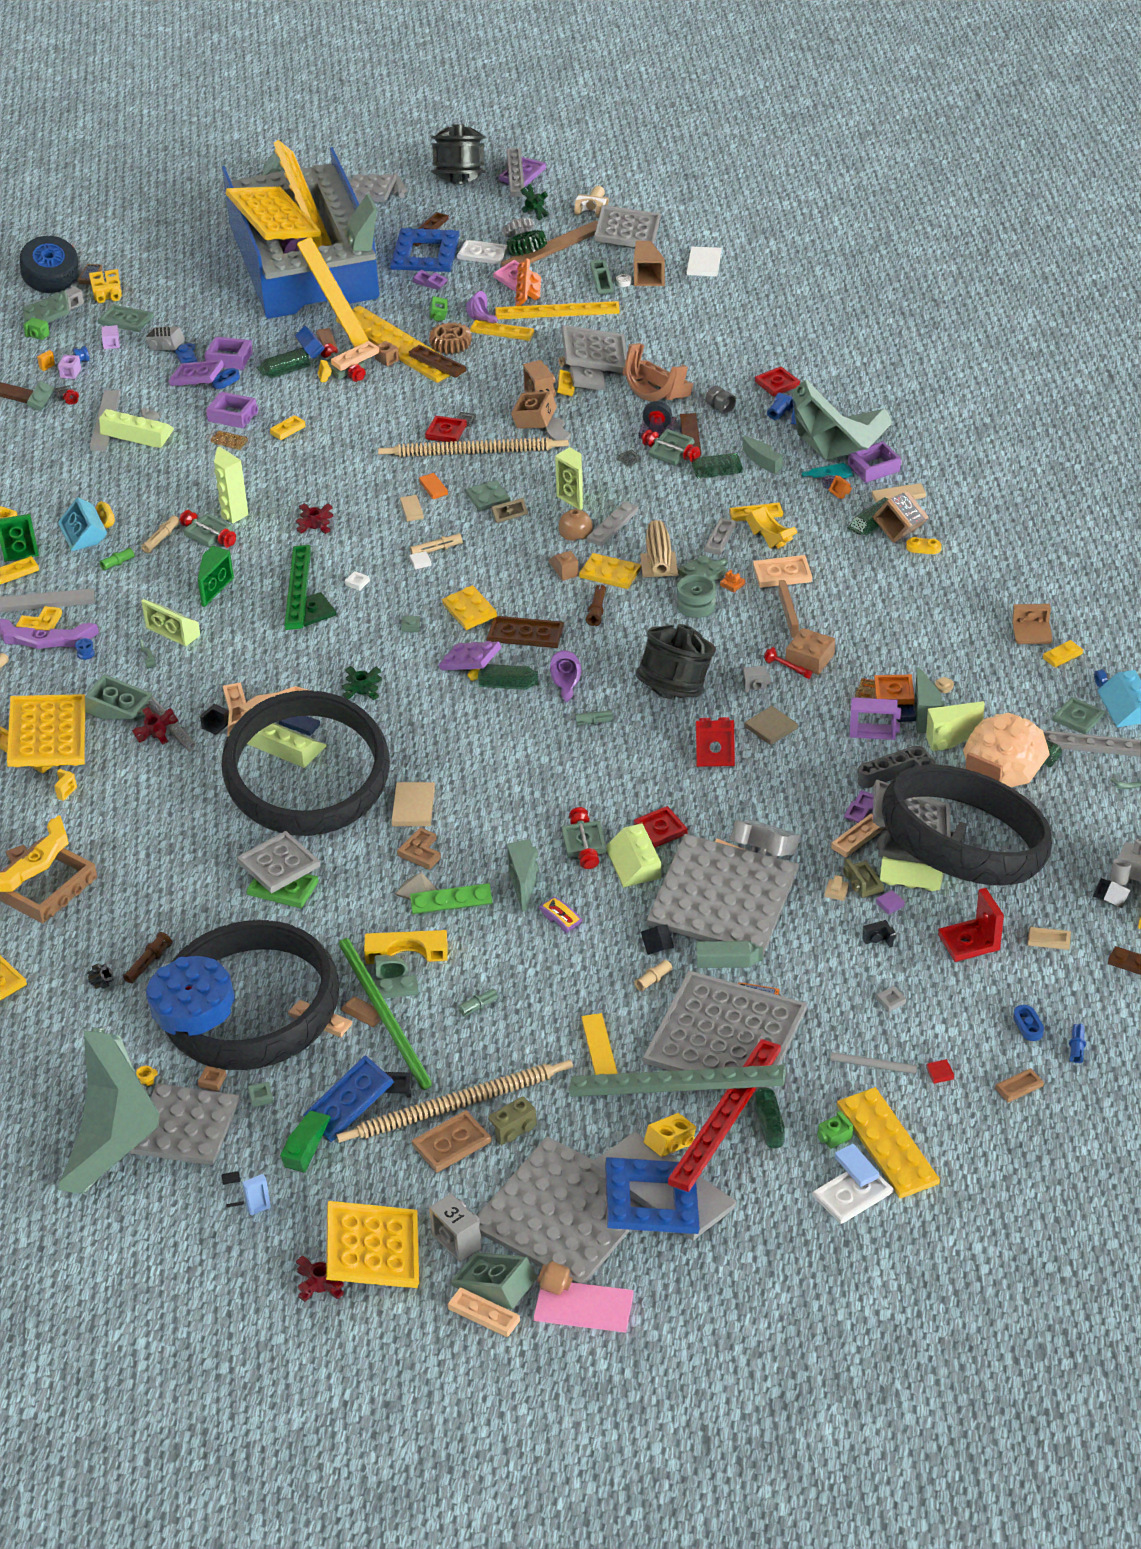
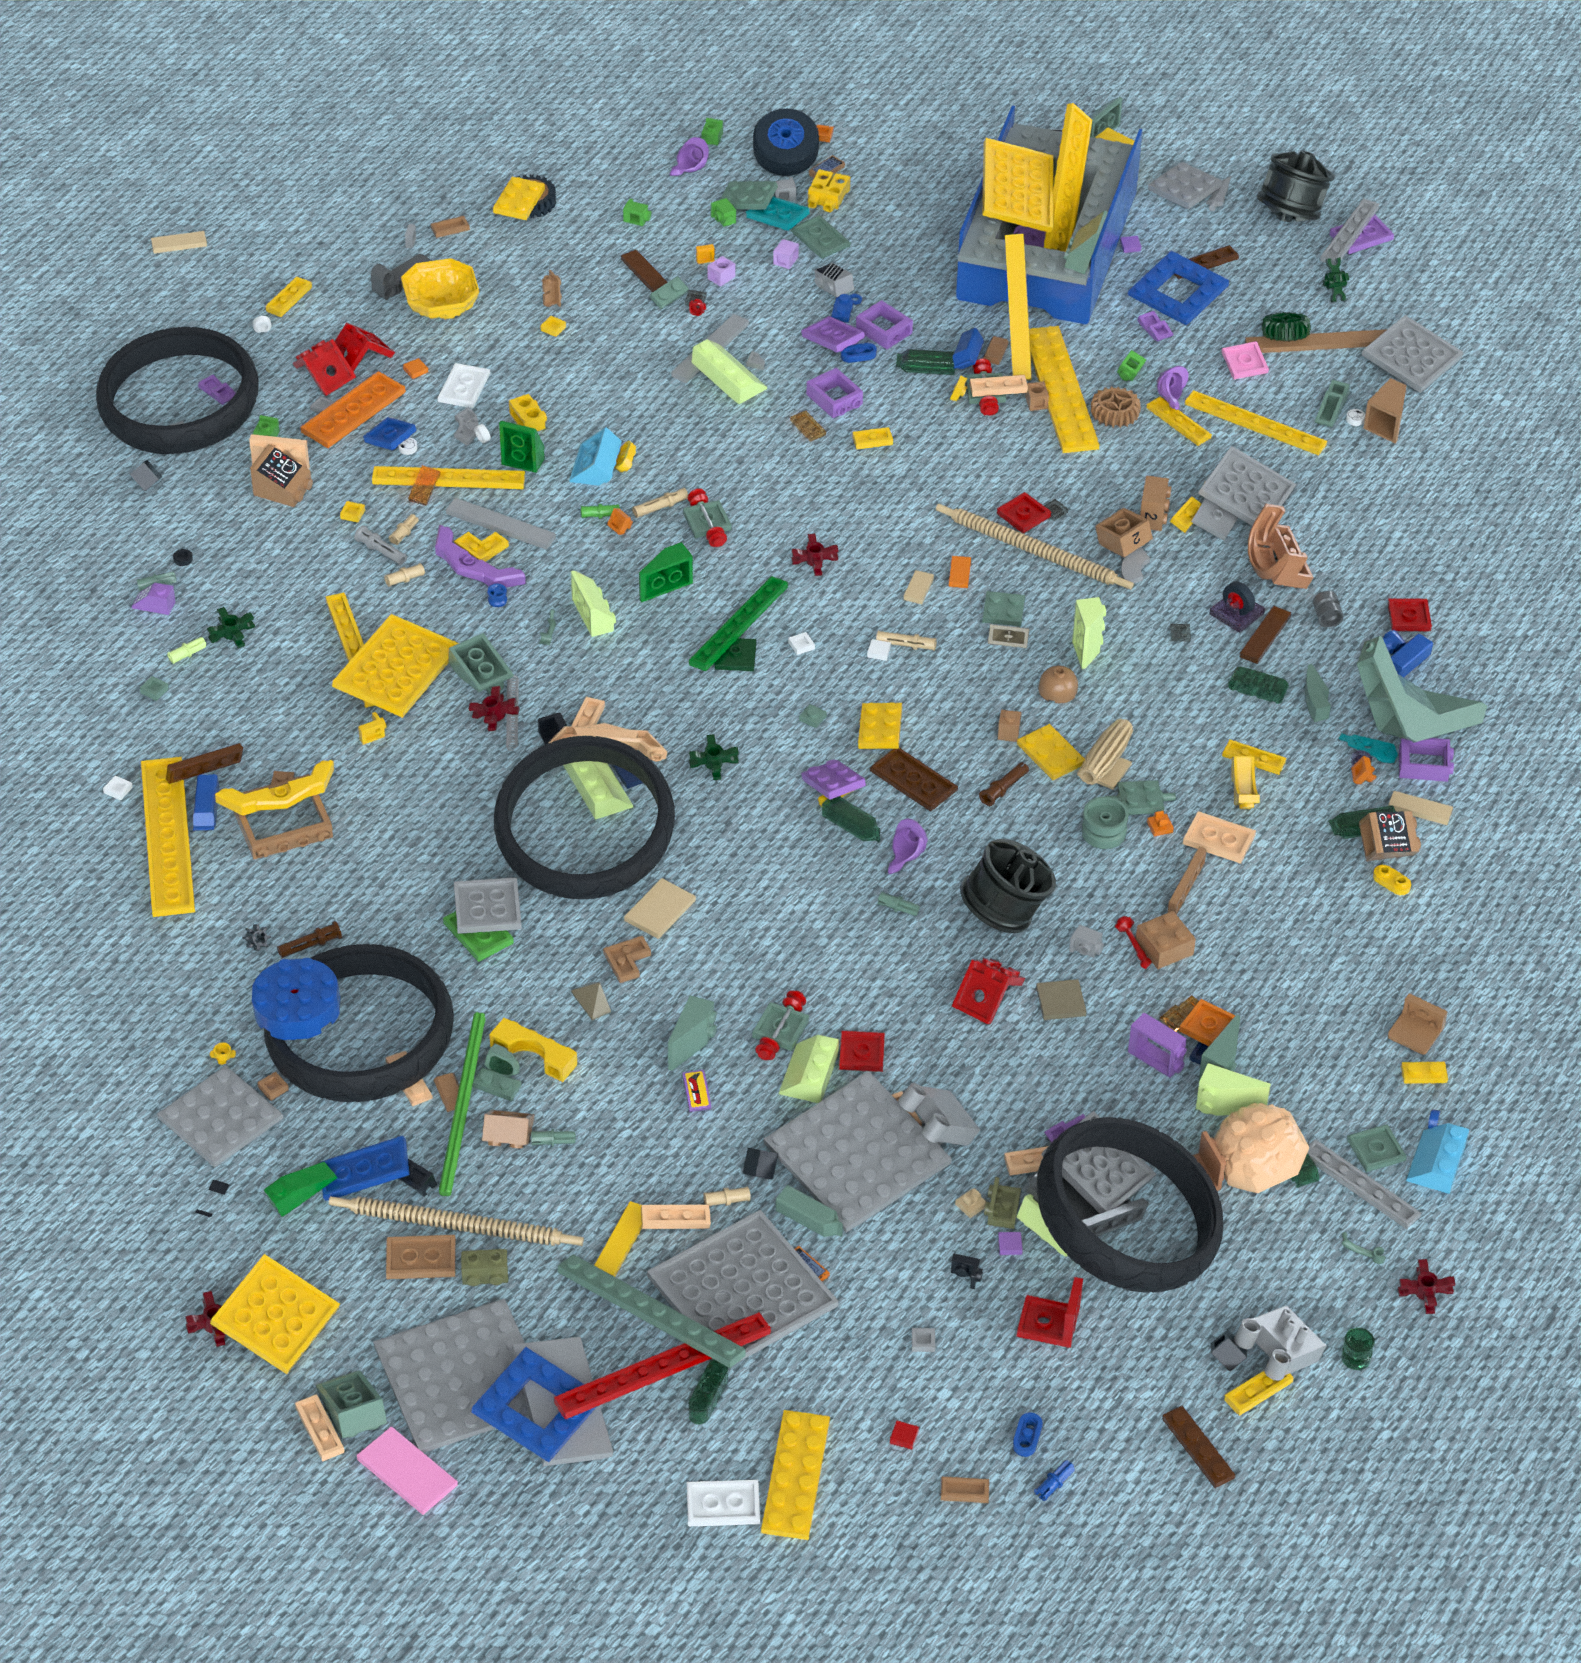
camera: 30 degrees right, 5 degrees up
(82, 313) = (779, 214): none -> teal plate
(82, 353) = (742, 262): blue wheel -> none
(115, 1112) = (156, 1078): sand green panel -> none
(139, 559) = (619, 521): none -> orange tile
(230, 486) = (747, 483): yellowish green slope -> none
(256, 1194) = (217, 1214): light blue tile -> none
(260, 1094) = (300, 1123): sand green plate -> none
(437, 361) = (1077, 429): reddish brown tile -> none
(438, 1011) = (507, 1128): none -> slope
(451, 898) = (612, 1022): bright green plate -> none
(455, 1227) = (353, 1338): light grey brick -> none
(482, 252) = (1237, 316): white tile -> none
(518, 226) = (1292, 303): light grey gear -> none
(527, 283) = (1248, 377): orange bracket -> none
(554, 1278) = (395, 1431): medium nougat head -> none
(592, 201) = (1402, 305): tan connector -> none
(612, 524) = (1098, 700): light grey plate -> none
(628, 1008) = (675, 1217): none -> light nougat plate
(670, 446) = (1228, 640): sand green plate -> none
(670, 1134) = (603, 1356): yellow brick -> none
(704, 261) = (1462, 432): white tile -> none
(720, 536) = (1193, 766): light grey tile -> none
(835, 1130) = (755, 1437): bright green brick -> none
(856, 1165) = (743, 1479): light blue tile -> none
(870, 1062) = (852, 1393): light grey bar -> none
(891, 765) = (1138, 1106): dark grey beam -> none
(944, 684) = (1270, 1044): tan plate -> none
(1049, 938) = (1128, 1362): tan tile -> none

